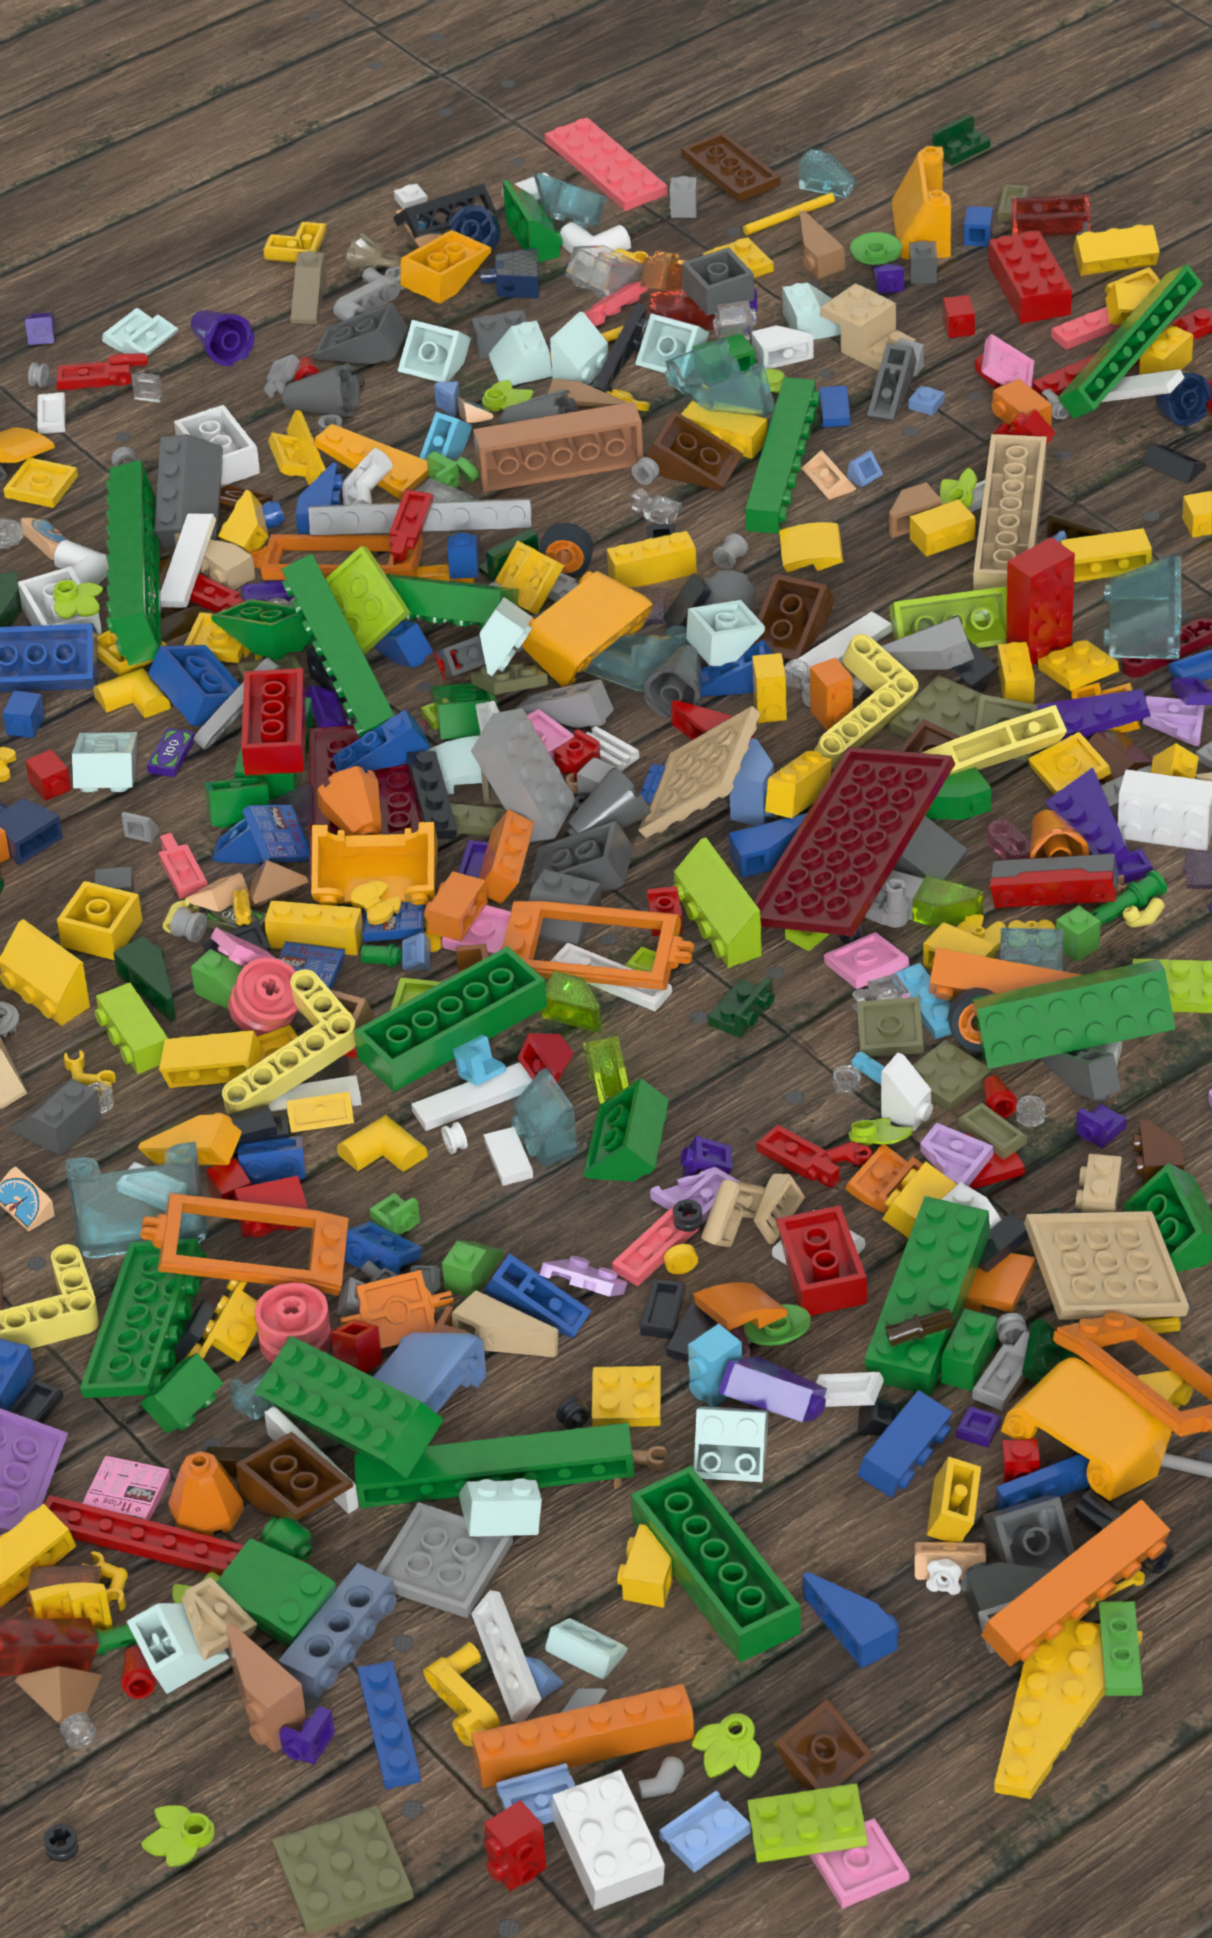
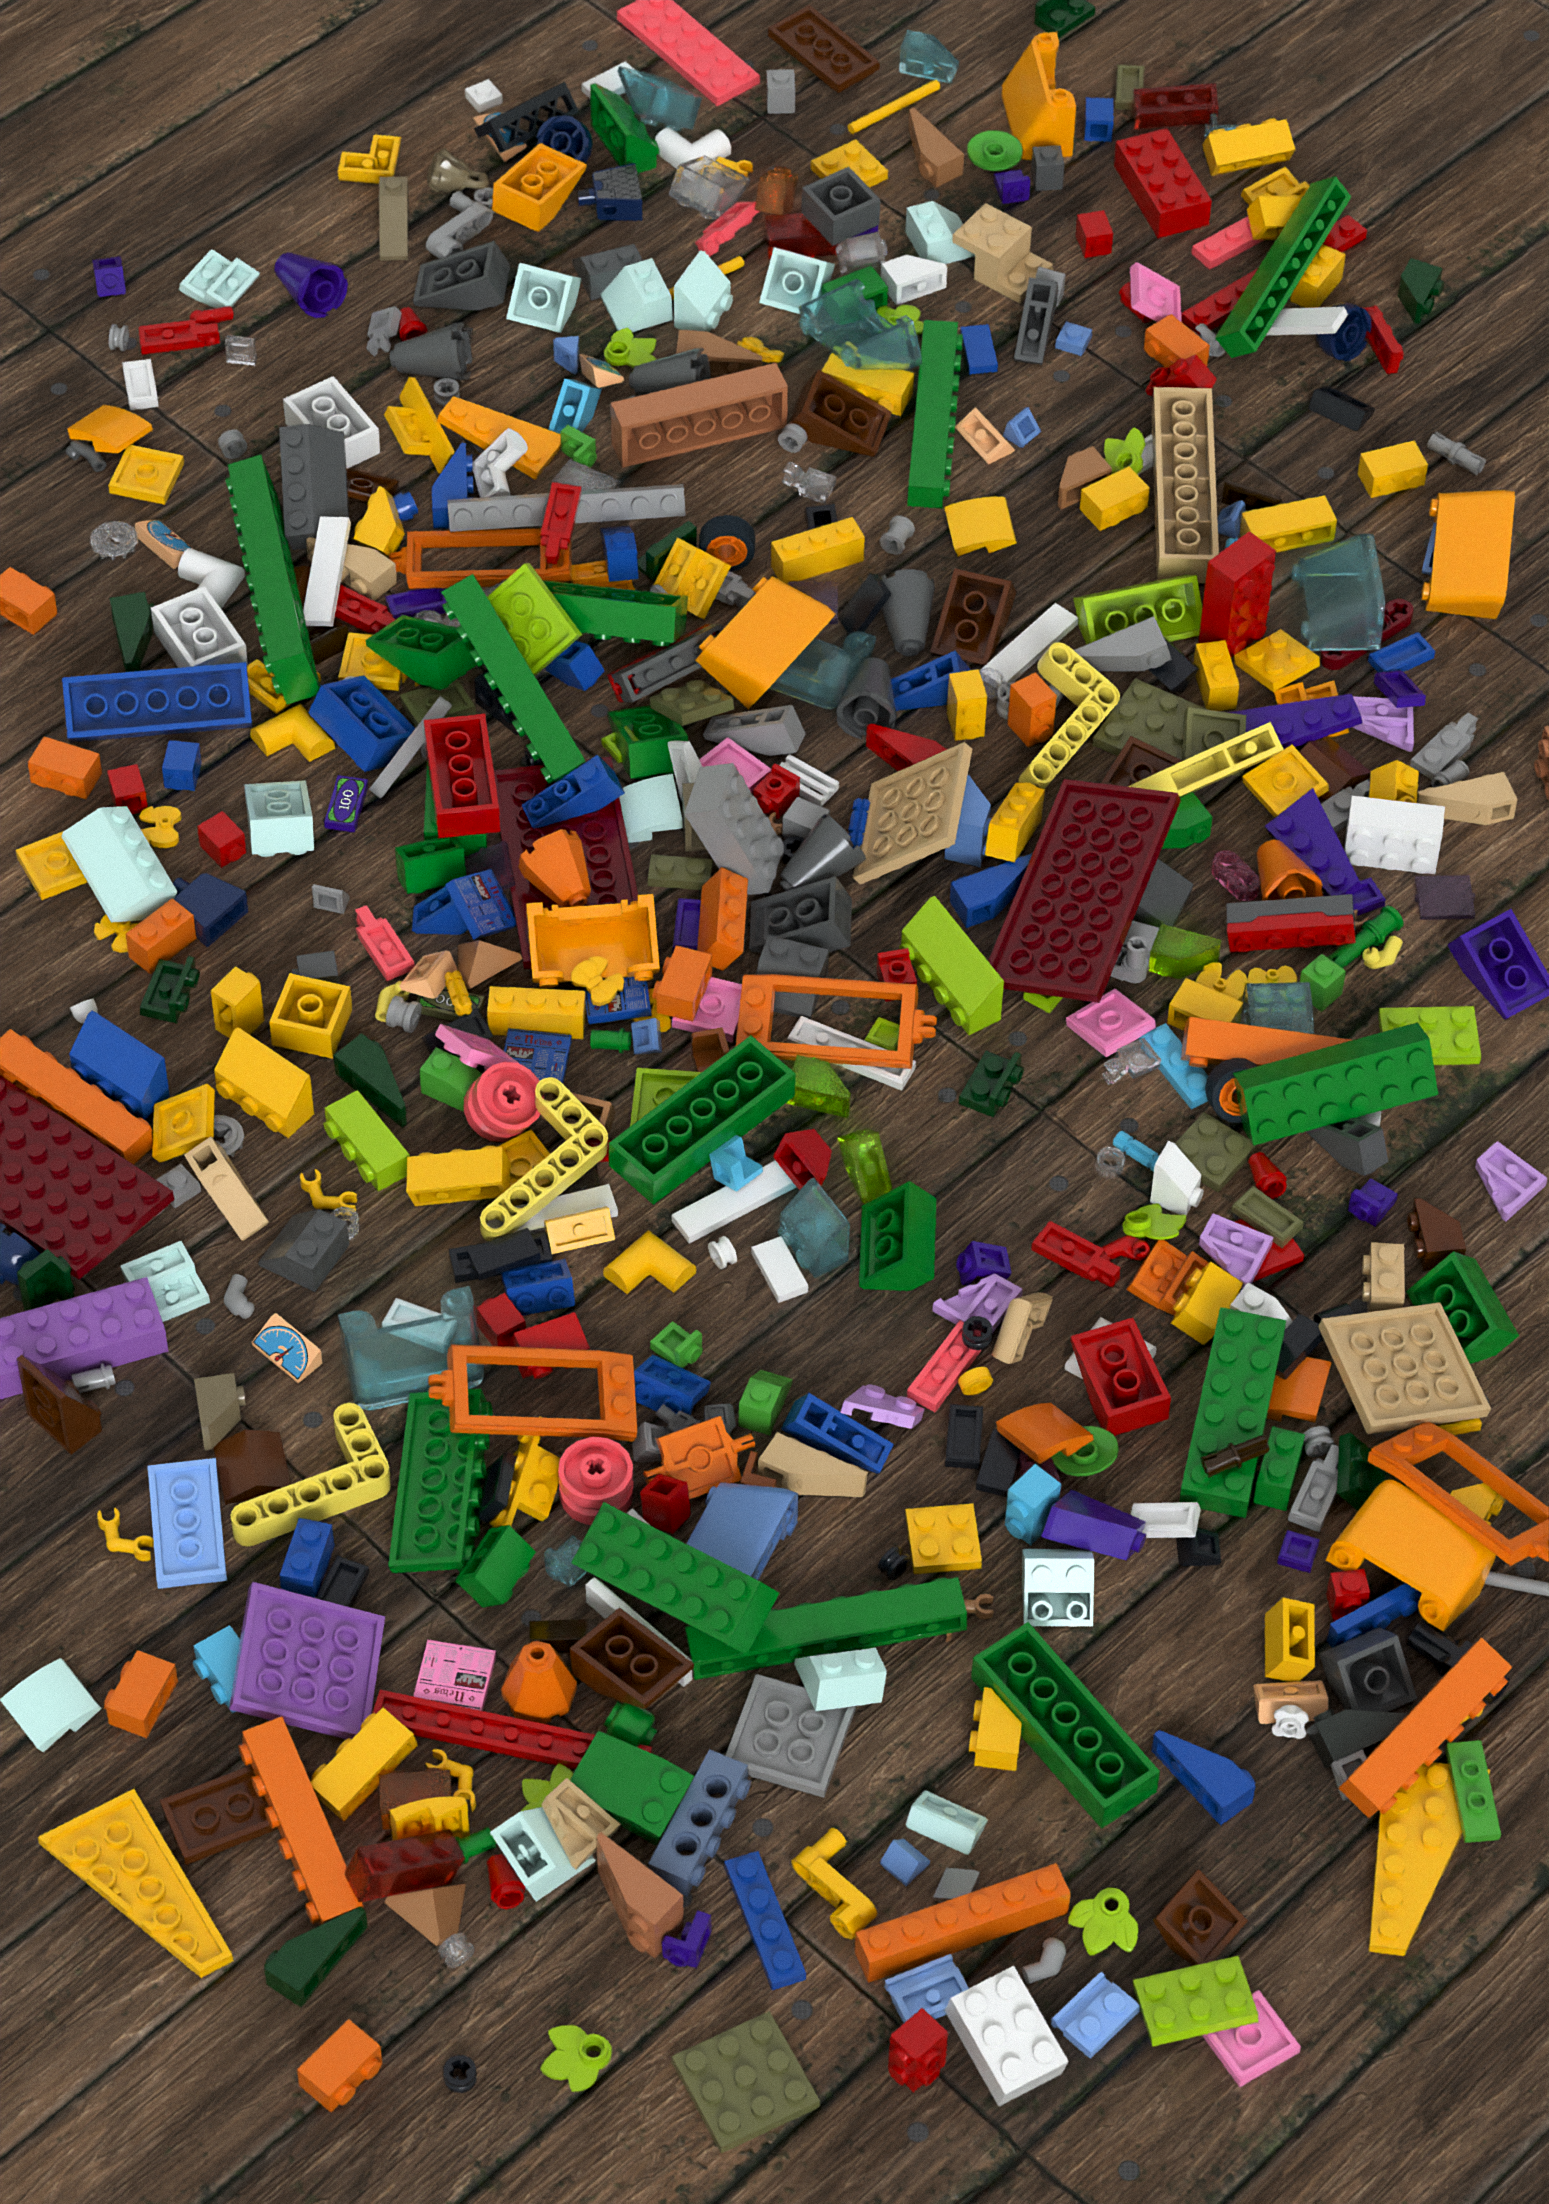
camera: 10 degrees left, 10 degrees up
(34, 901) = (237, 1003): none -> yellow brick
(76, 599) = (219, 629): lime plate -> none
(214, 1138) = (480, 1270): light orange slope -> none
(326, 707) = (505, 746): dark purple tile -> none
(431, 792) = (633, 847): black plate -> none
(467, 470) = (604, 444): bright green tile -> none
(502, 631) = (687, 659): light aqua slope -> none
(506, 1656) = (871, 1839): white tile -> none
(625, 345) = (754, 275): black plate -> none
(722, 631) = (911, 642): light aqua slope -> none
(786, 1195) = (1064, 1314): tan slope -> none
(890, 1026) = (1147, 1100): olive plate -> none
(906, 1444) = (1233, 1579): blue brick -> none
(1030, 1118) = (1300, 1180): clear bush -> none

